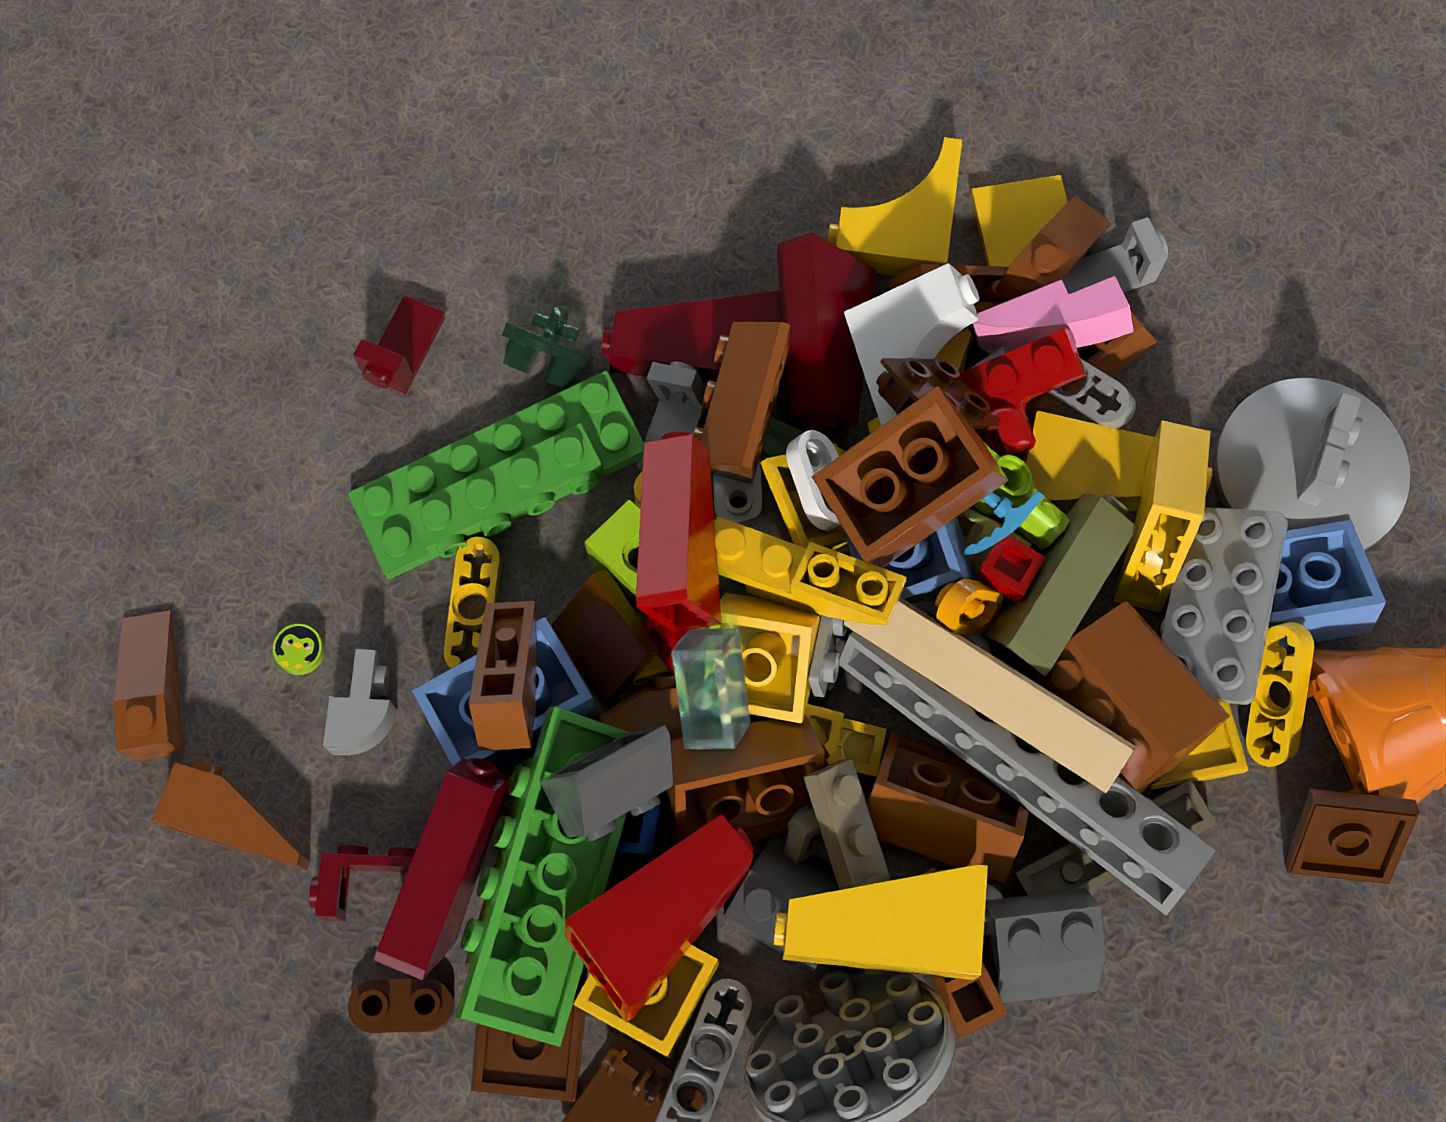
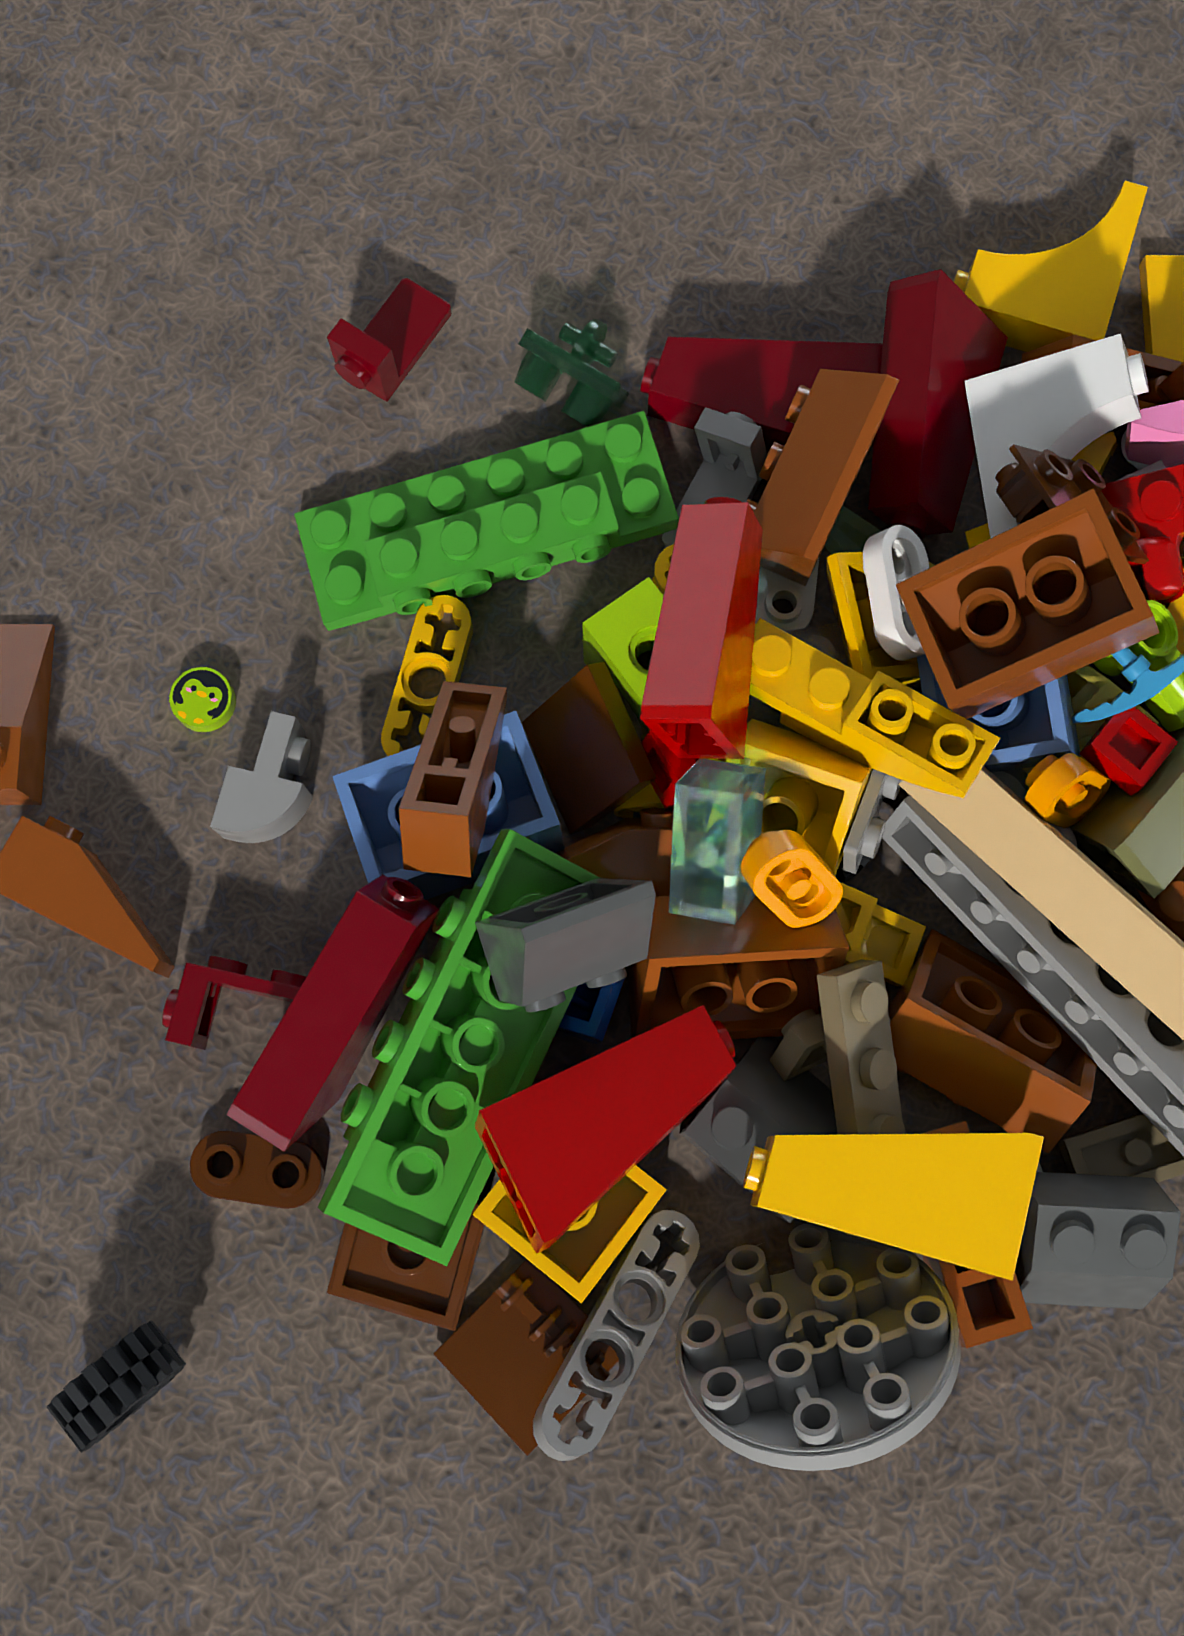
camera: 10 degrees right, 5 degrees up
(771, 707) = (791, 878): none -> light orange plate

